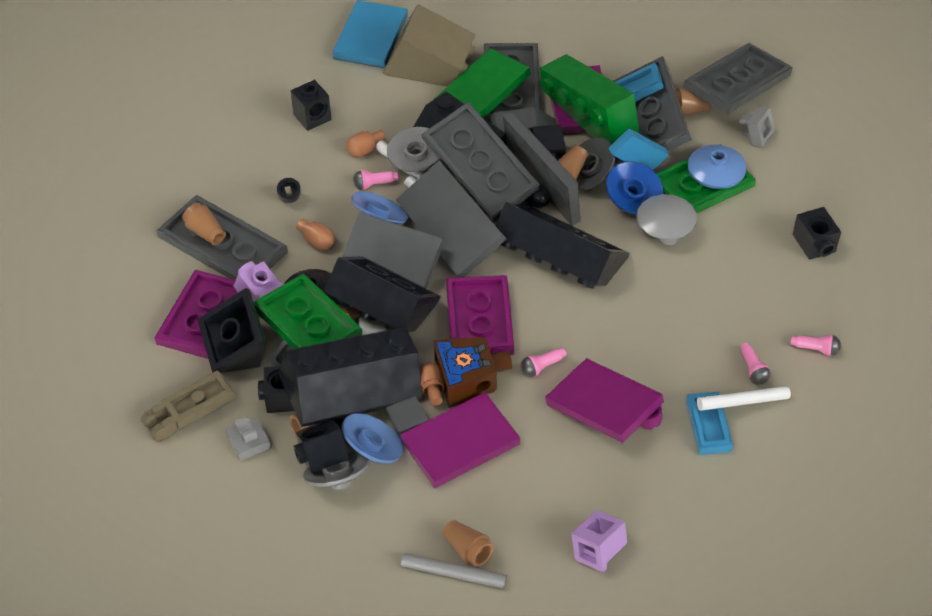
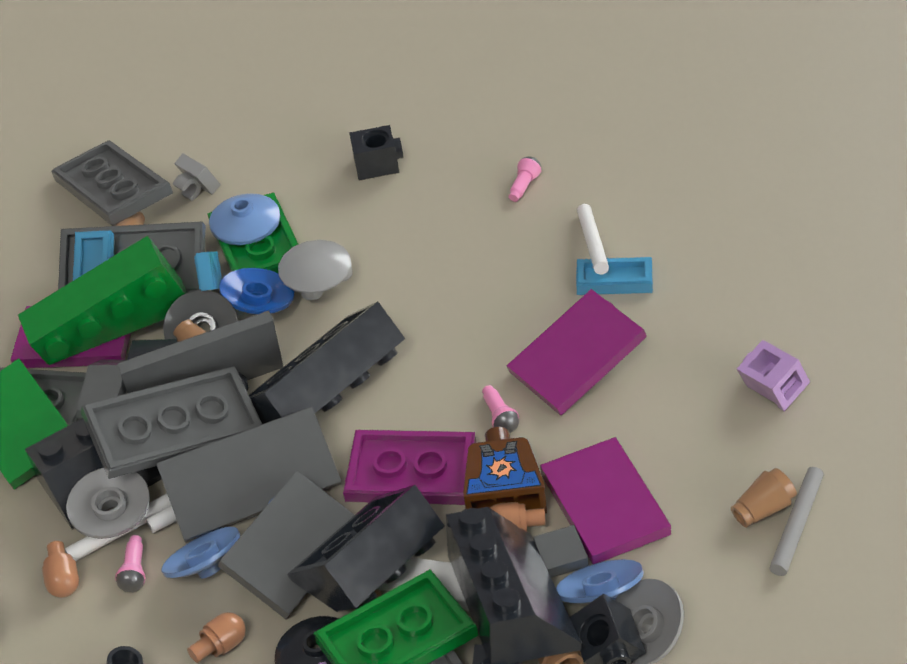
camera: 75 degrees left, 5 degrees down
(758, 371) = (553, 226): bright pink piece -> none

